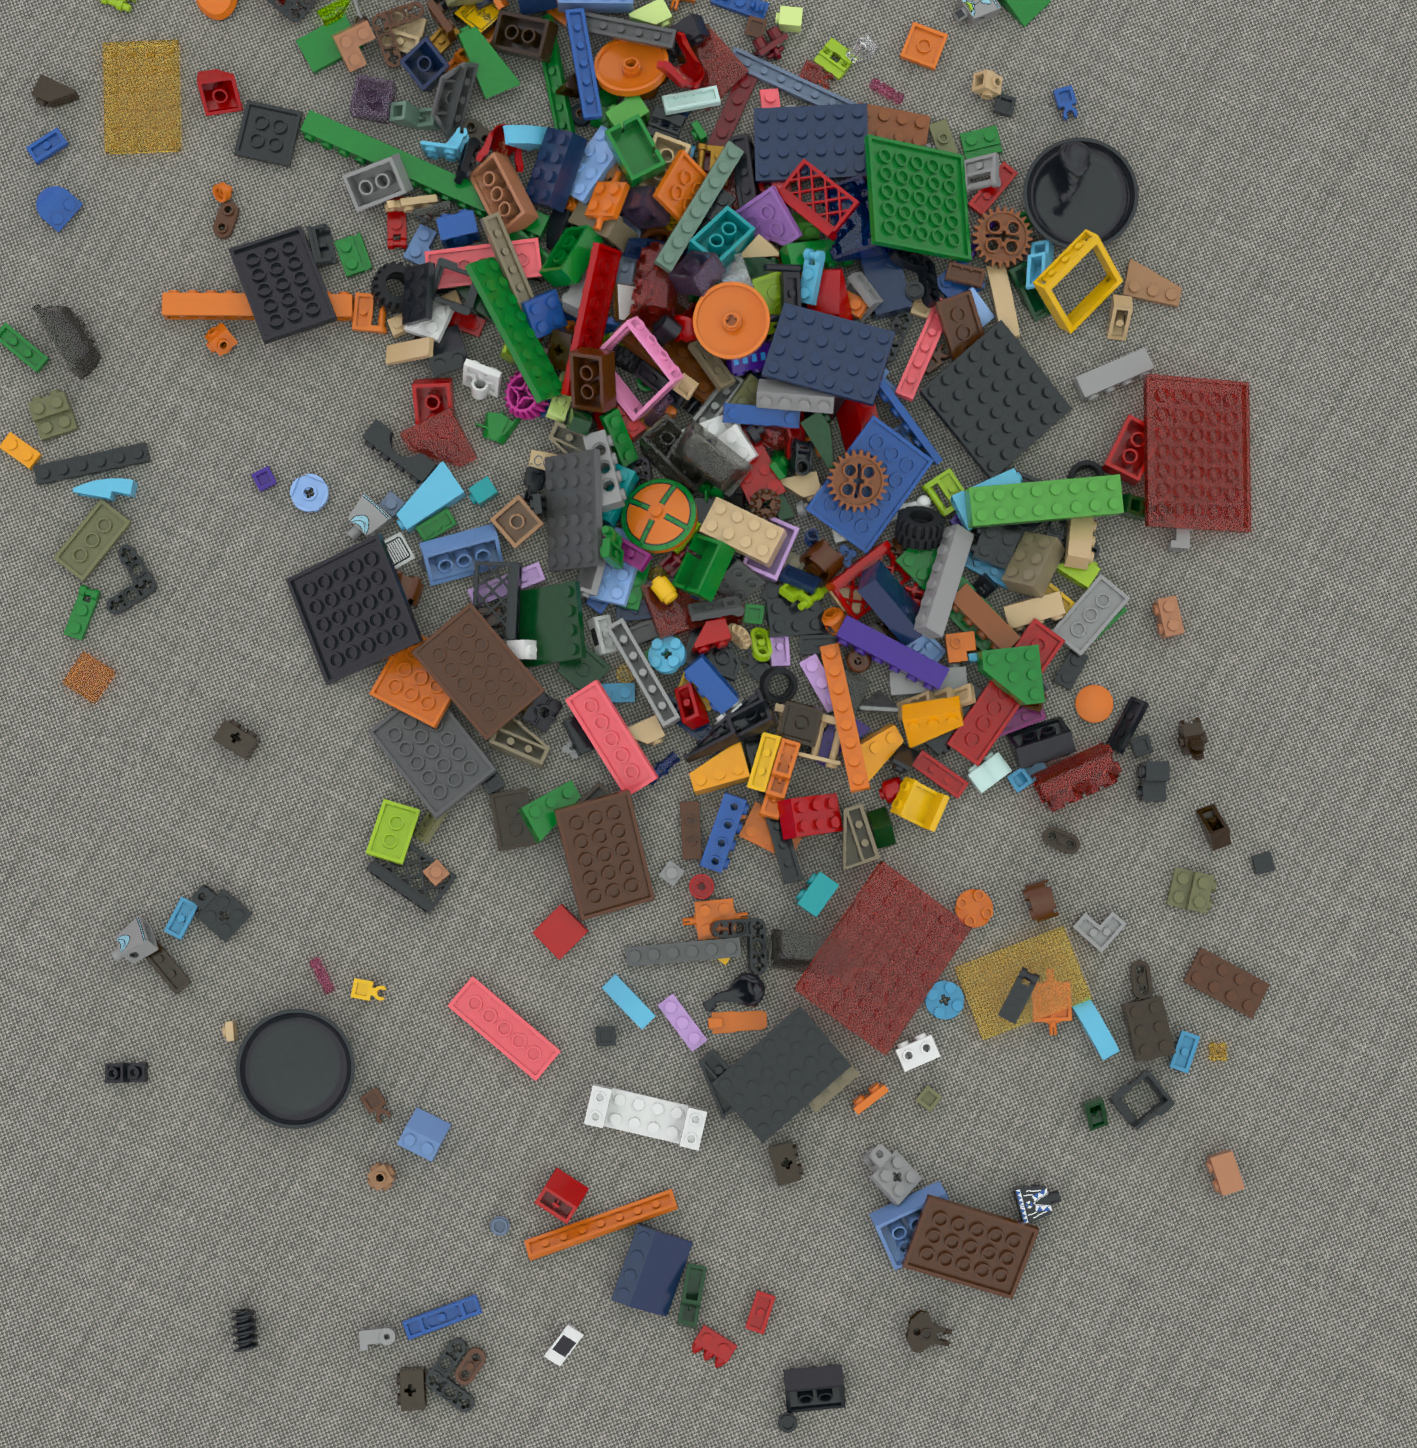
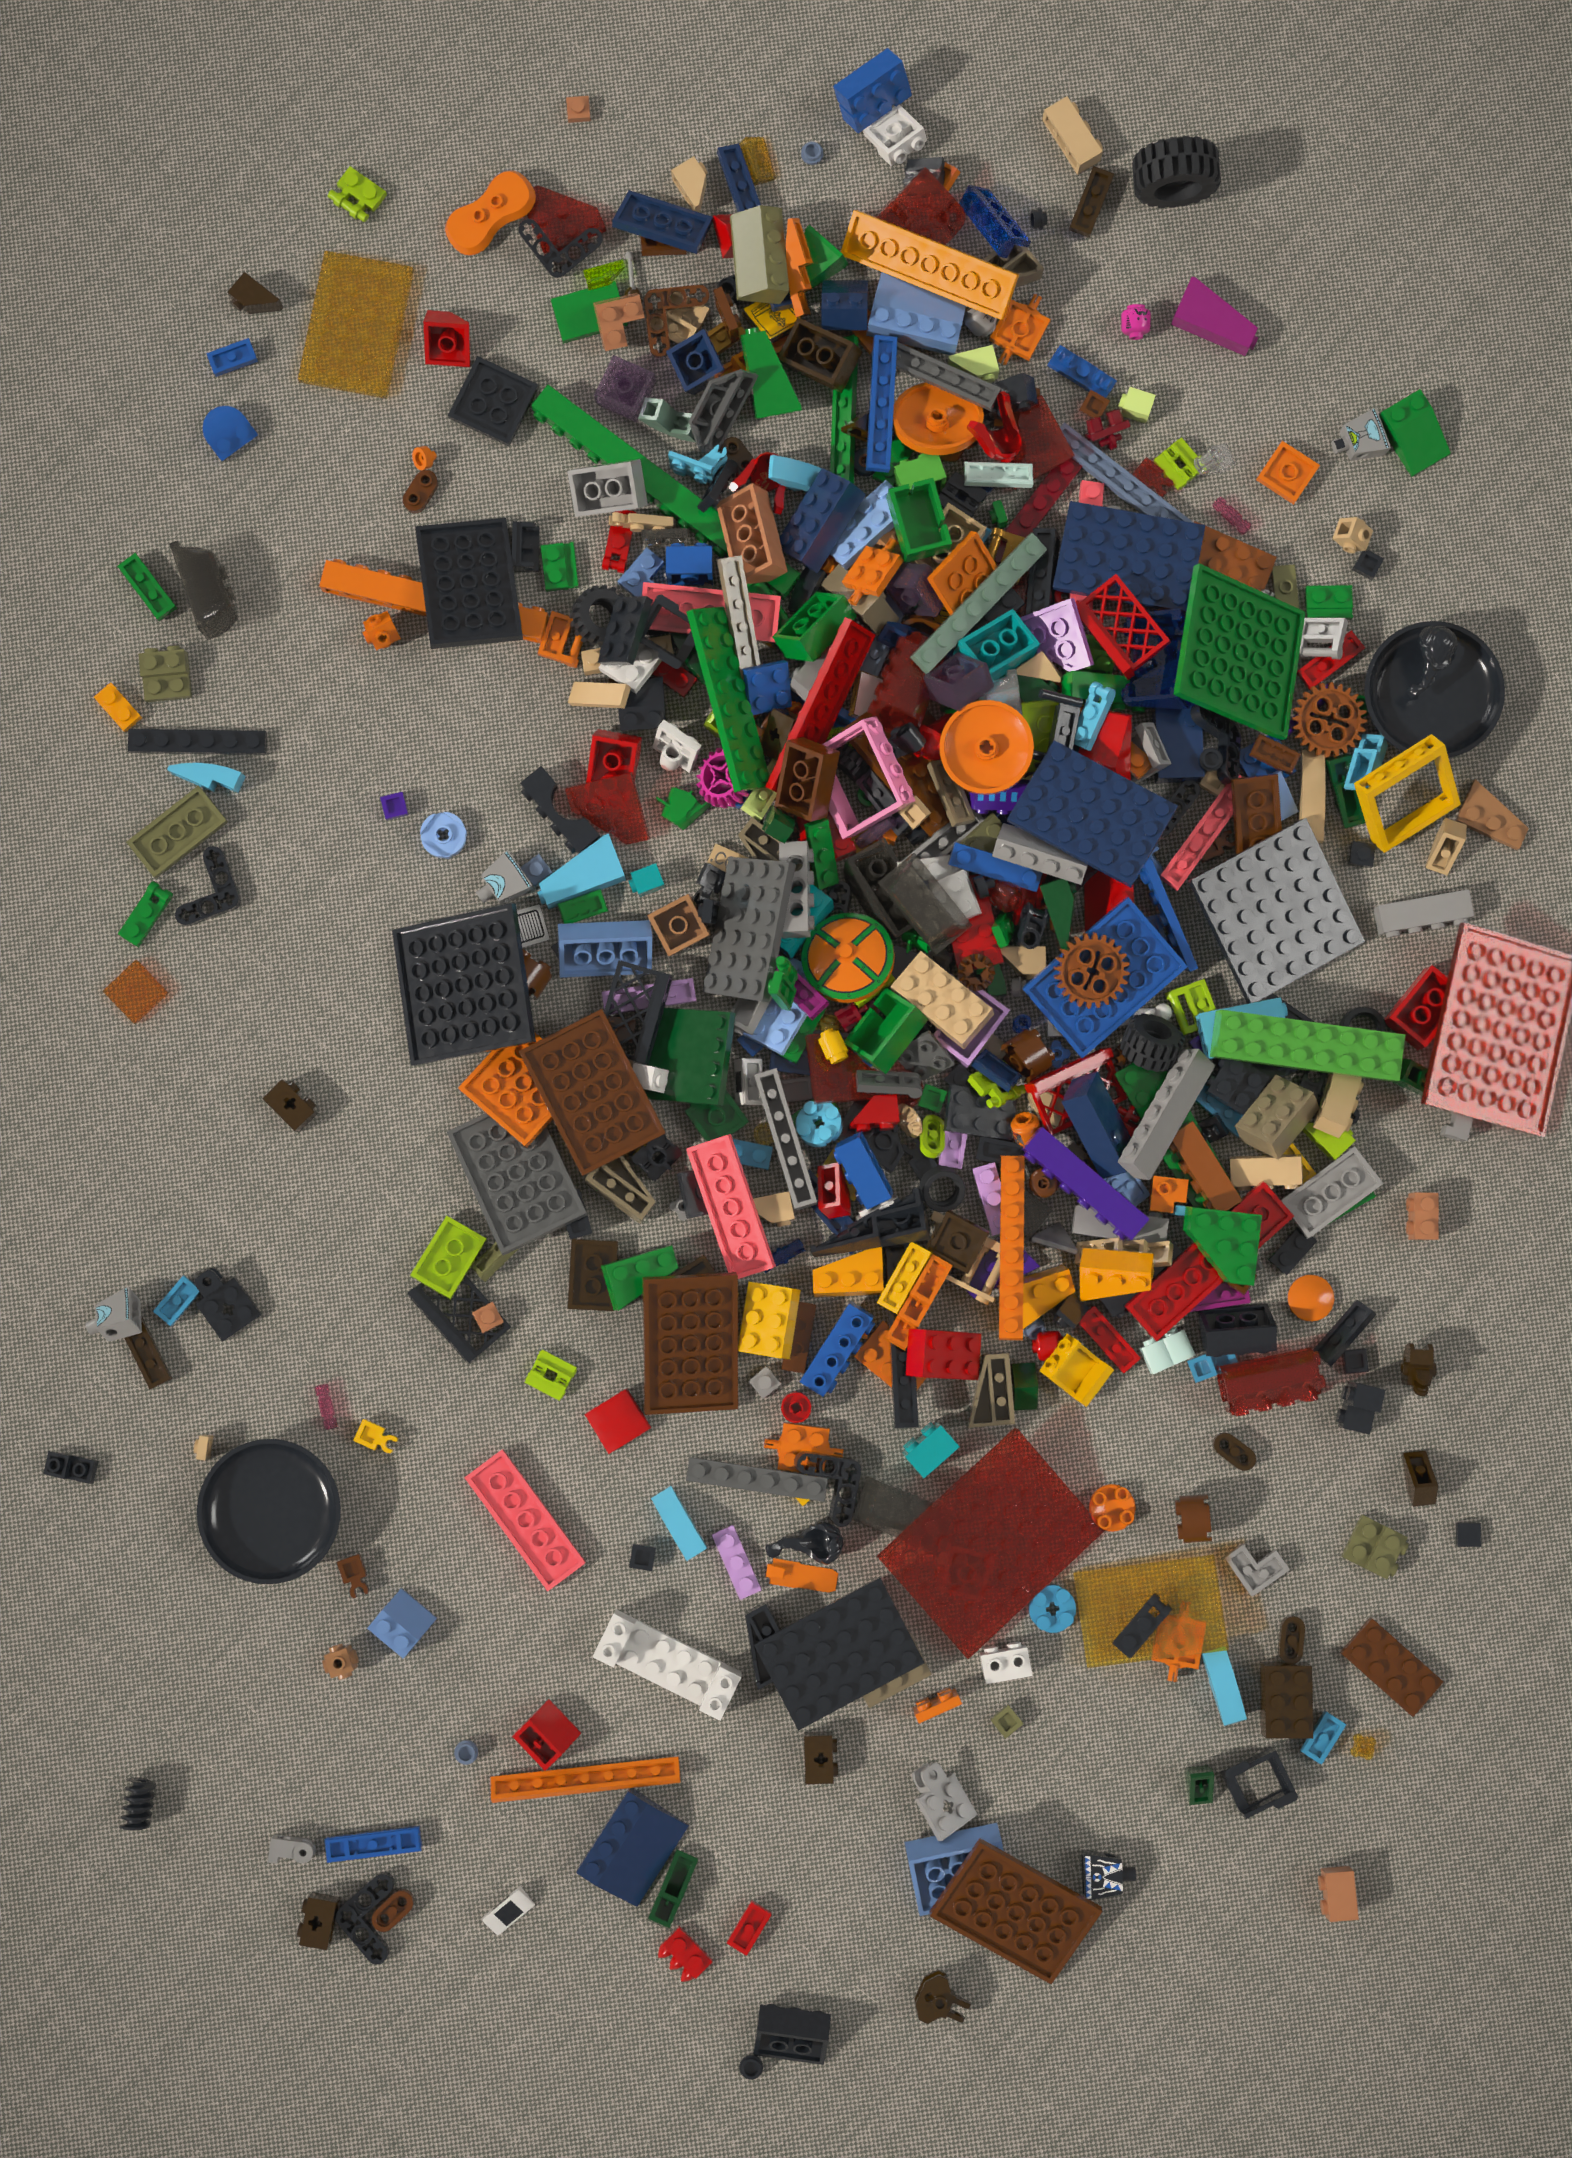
camera: 15 degrees right, 0 degrees up
(493, 897) = (552, 1388): none -> lime piece
(663, 822) = (769, 1320): none -> yellow brick
(878, 778) = (1034, 1328): none -> sand blue plate
(1053, 339) = (1362, 854): none -> black plate
(1065, 100) = (1441, 572): blue plate -> none

